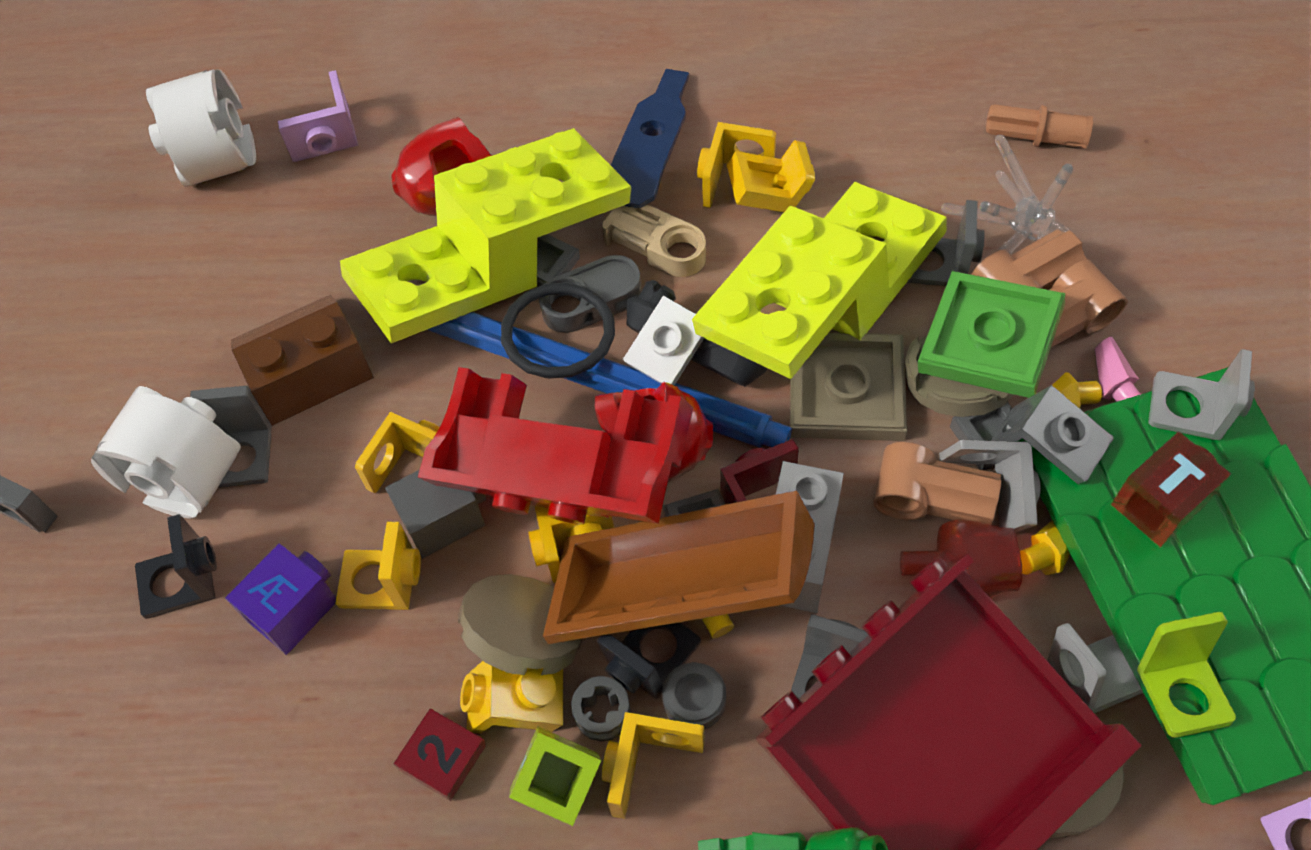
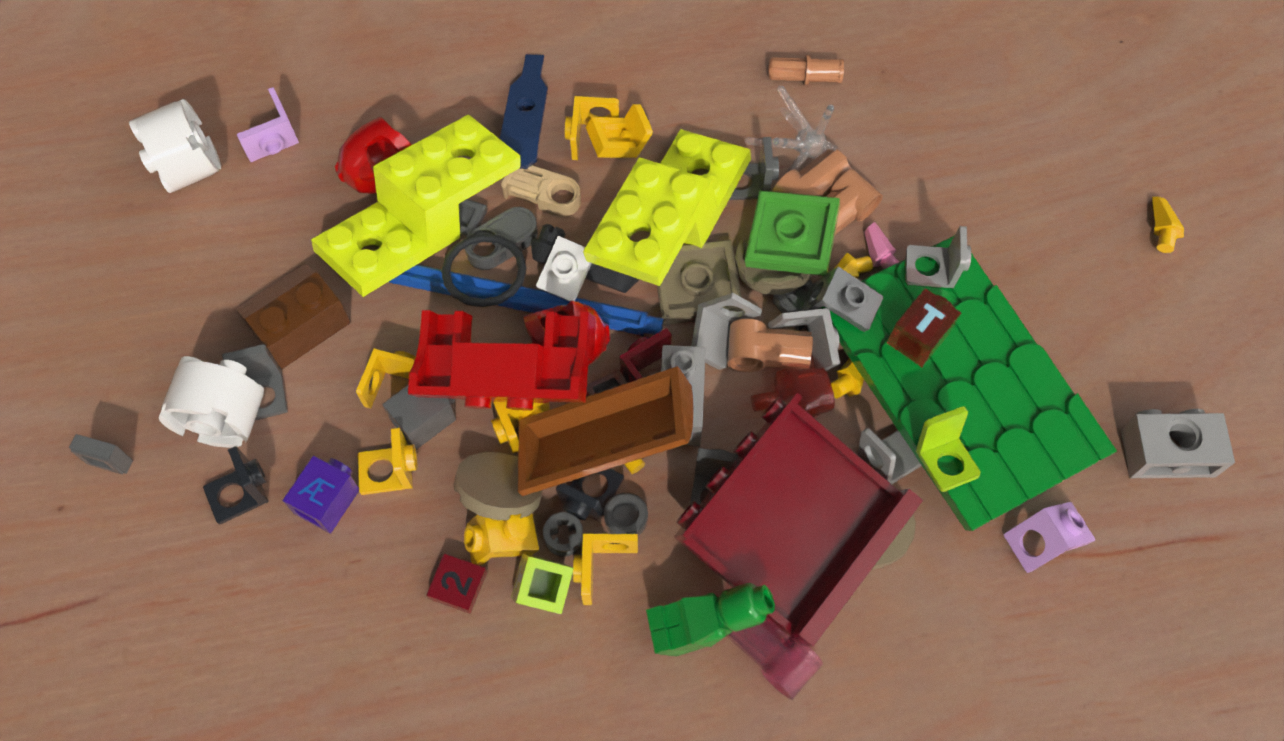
camera: 15 degrees left, 5 degrees up
(861, 446) = (714, 324): none -> light grey bracket

